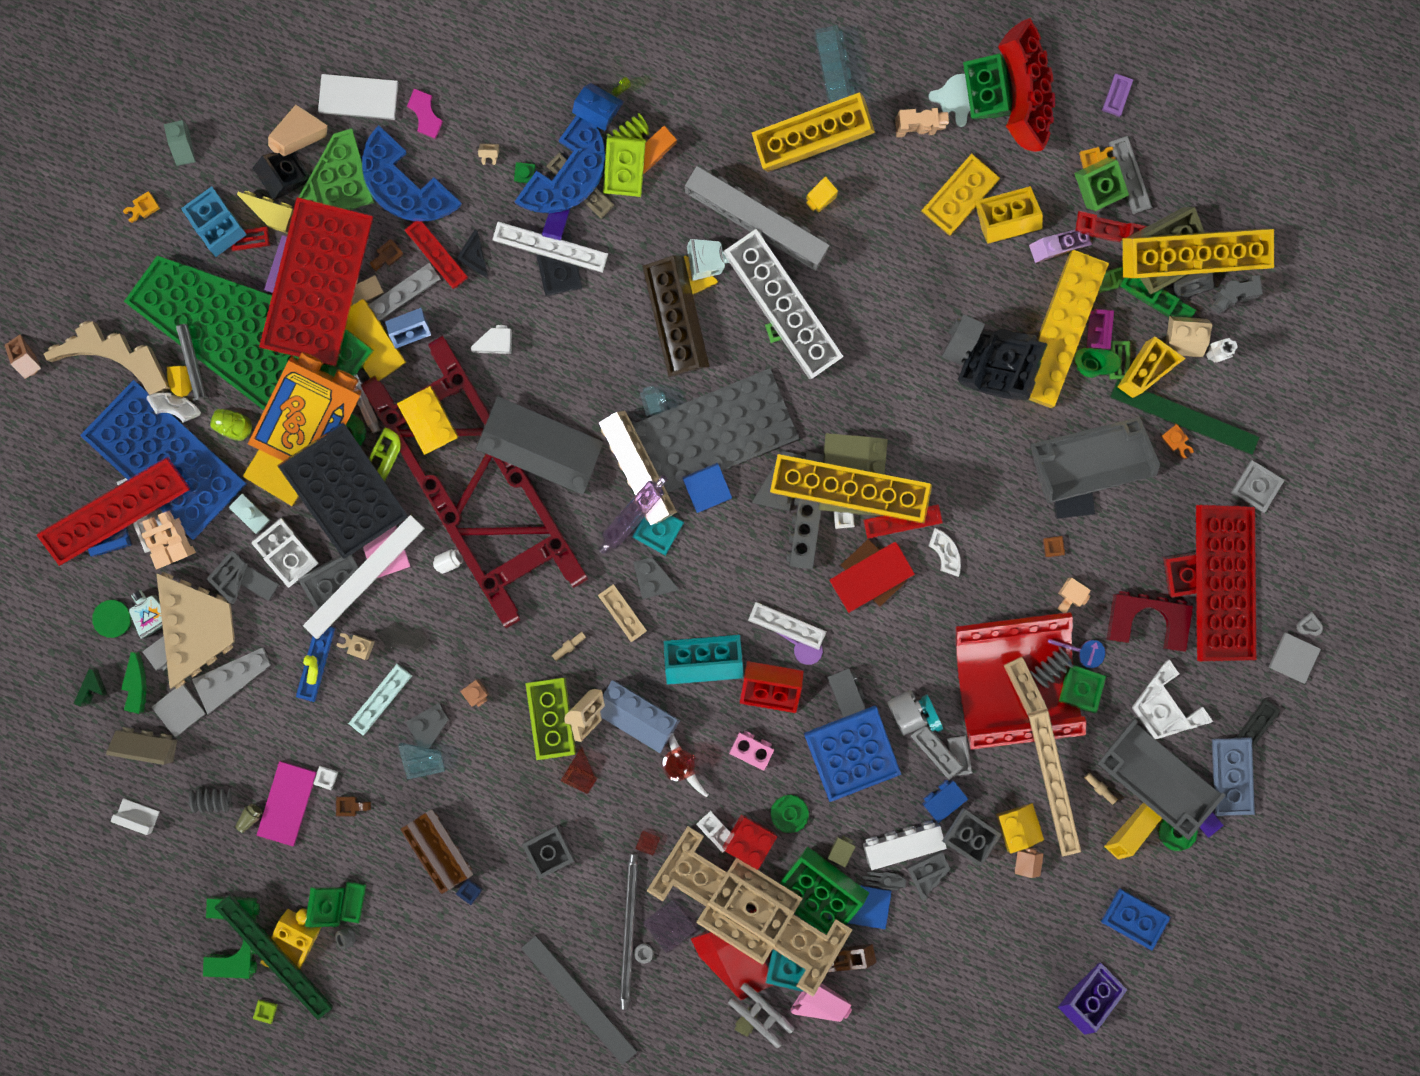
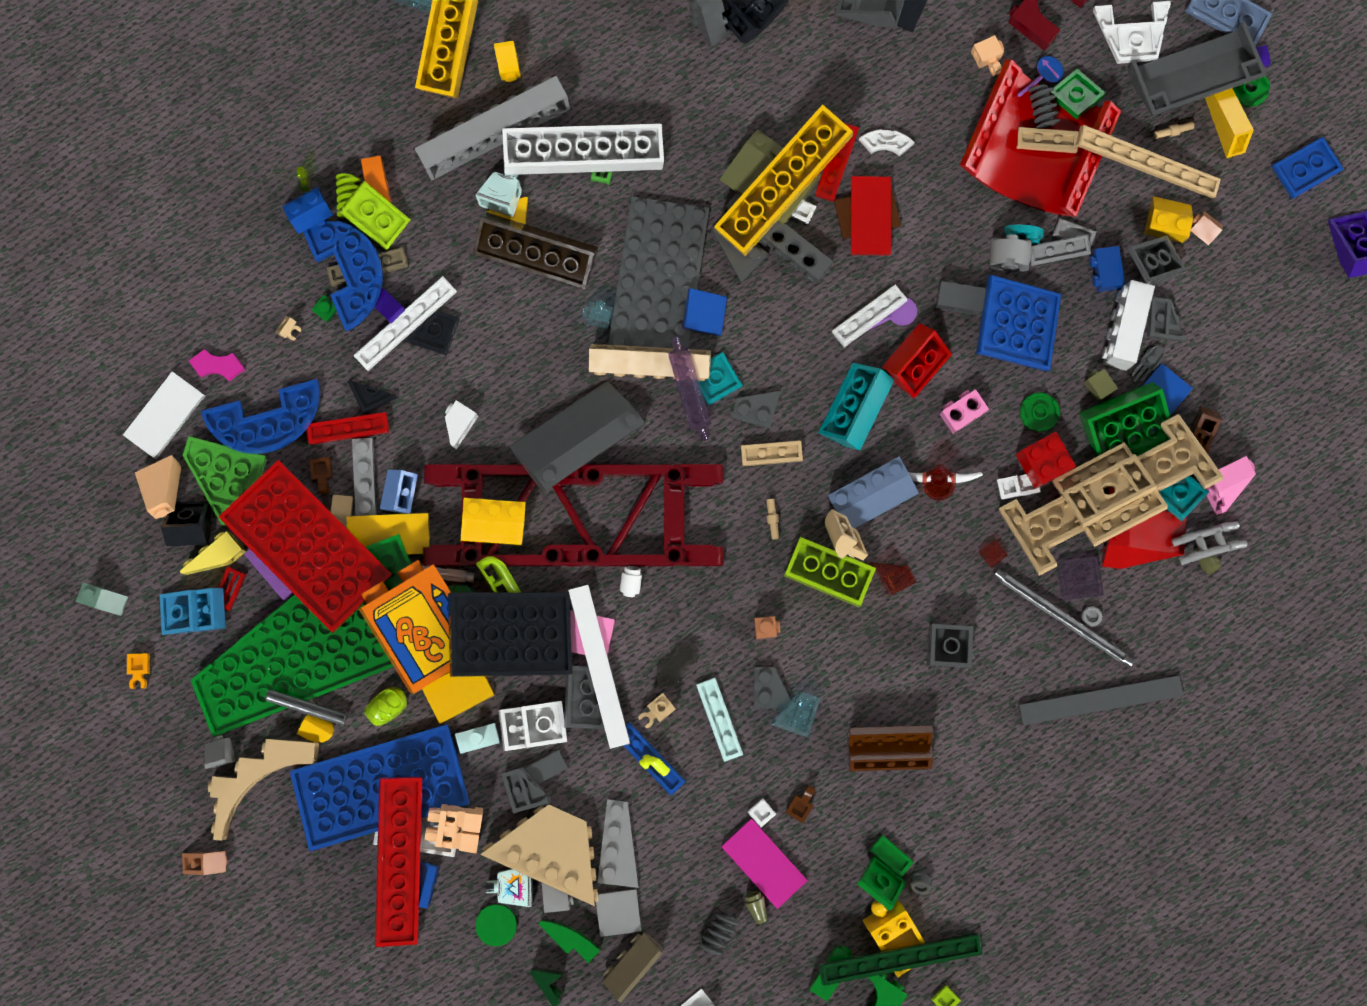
camera: 55 degrees left, 5 degrees down
(113, 314) = (219, 752): none -> light grey slope
(174, 405) = (335, 748): white tile -> none
(469, 891) = (943, 742): dark blue tile -> none
(1054, 546) = (936, 47): dark orange tile -> none

